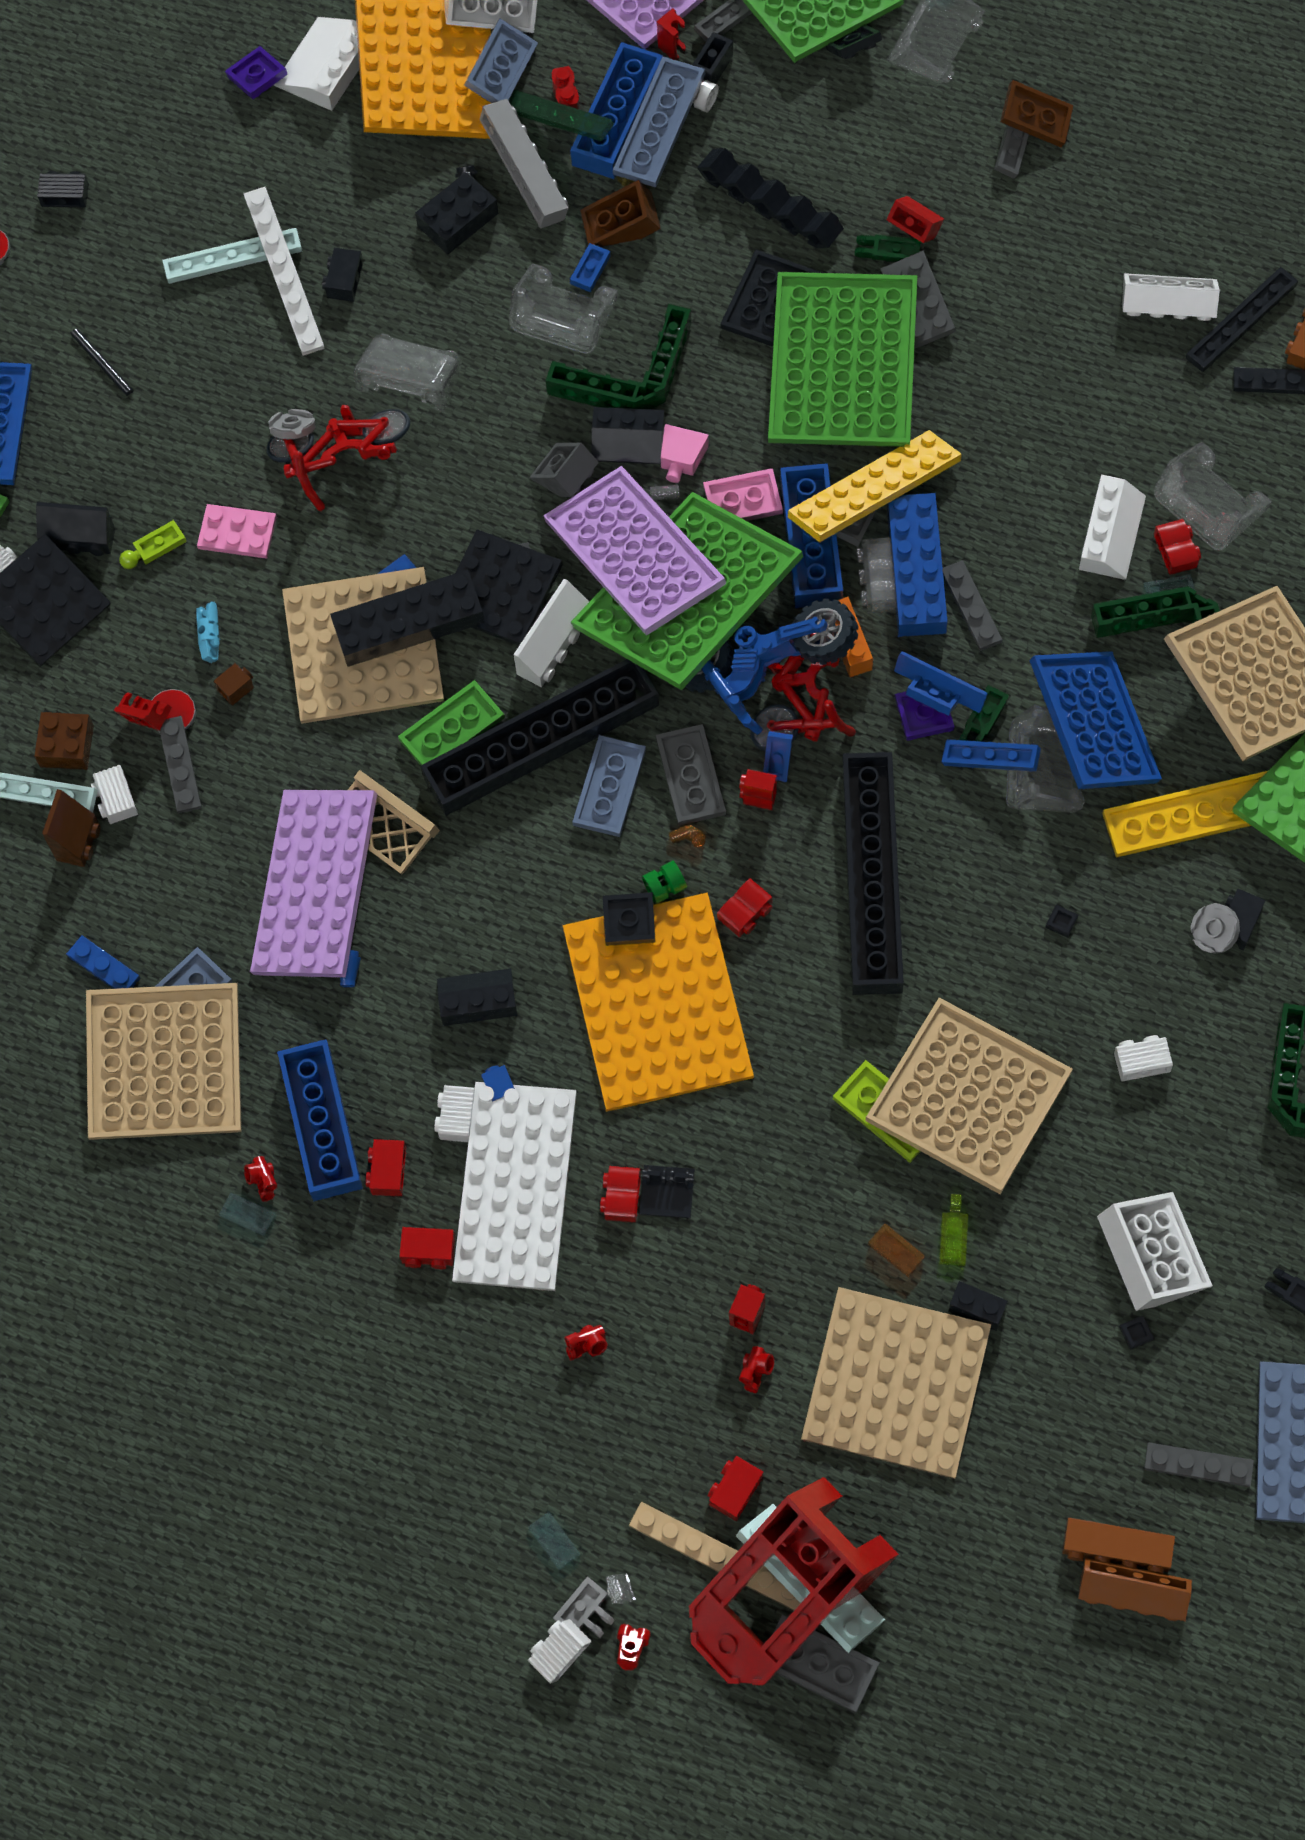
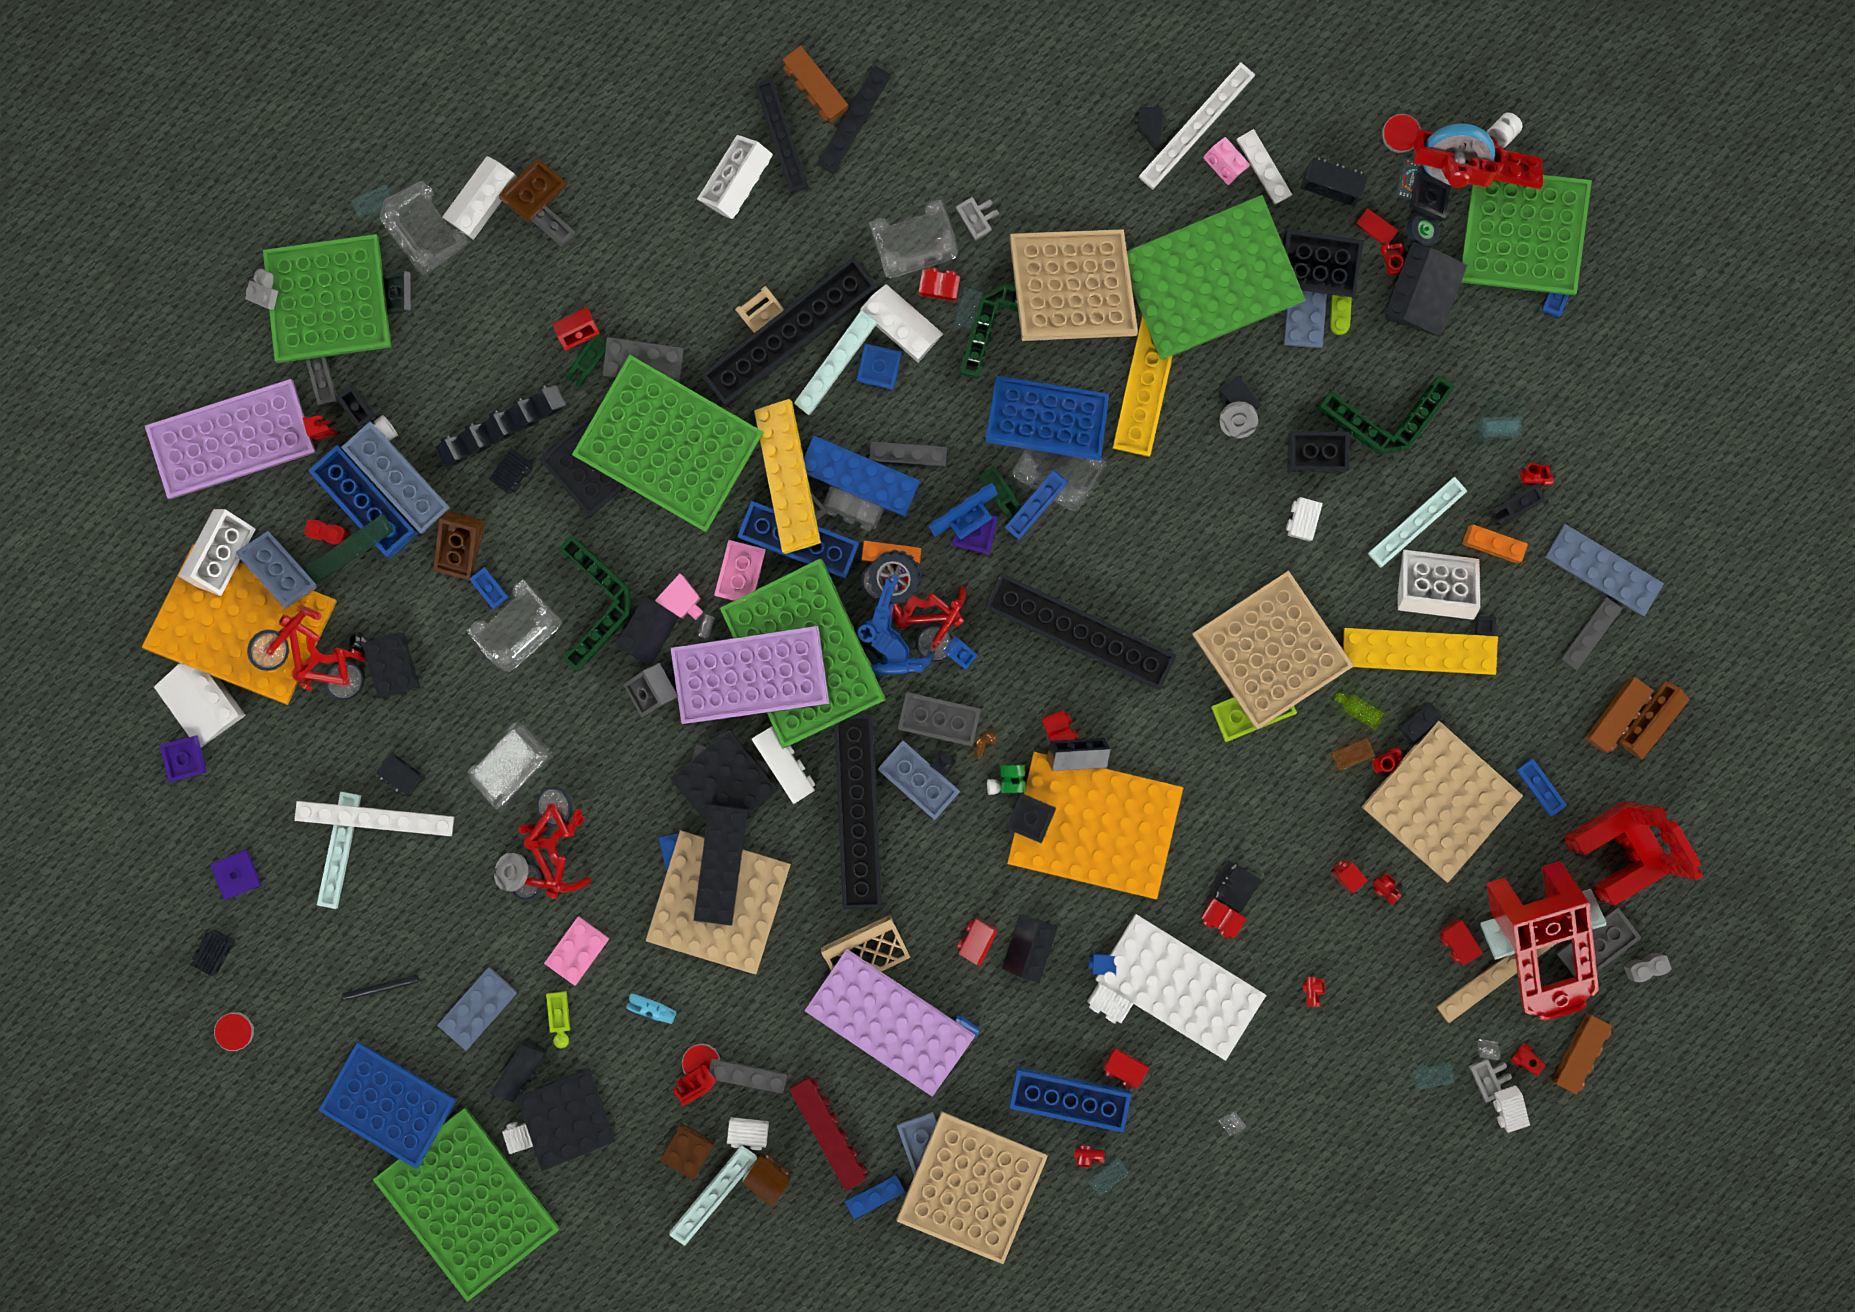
camera: 70 degrees left, 20 degrees up
(124, 464) = (477, 1008): none -> sand blue plate
(154, 878) = (827, 1132): none -> dark red brick
(157, 175) = (235, 874): none -> dark purple plate
(234, 683) = (703, 1008): reddish brown brick -> none
(380, 1323) = (1232, 1123): none -> clear plate
(414, 79) = (270, 650): none -> piece
(427, 1247) = (1195, 1066): red brick -> none
(452, 724) = (816, 869): bright green plate -> none
(455, 932) = (977, 941): none -> slope
(524, 163) = (374, 595): light grey brick -> none
(642, 801) = (943, 763): none -> black plate
(643, 867) = (993, 786): none -> white hinge
(672, 1709) = (1582, 1053): none -> dark orange brick
(727, 230) = (511, 471): none -> black brick
(729, 934) = (1078, 754): none -> brick
(758, 789) = (979, 679): red brick -> none
(829, 1742) = (1650, 965): none -> light grey brick
(916, 1295) = (1390, 759): none -> red plate
(977, 1495) = (1541, 787): none -> blue plate
(981, 1625) = (1629, 827): none -> red bracket
(994, 73) = (479, 197): none -> white slope
(1028, 481) = (835, 362): none -> light aqua plate
(1033, 420) = (790, 332): none -> black brick
(1037, 392) = (763, 314): none -> tan plate
(1050, 530) = (879, 366): none -> blue plate
(1061, 921) = (1176, 519): black tile -> none
(1063, 1271) = (1421, 651): none -> yellow plate
(1214, 1190) = (1417, 522): none -> light aqua plate
(1230, 1032) = (1318, 452): none -> black brick
(1240, 1290) = (1494, 543): none -> orange brick
(1272, 547) = (974, 219): none -> light grey hinge

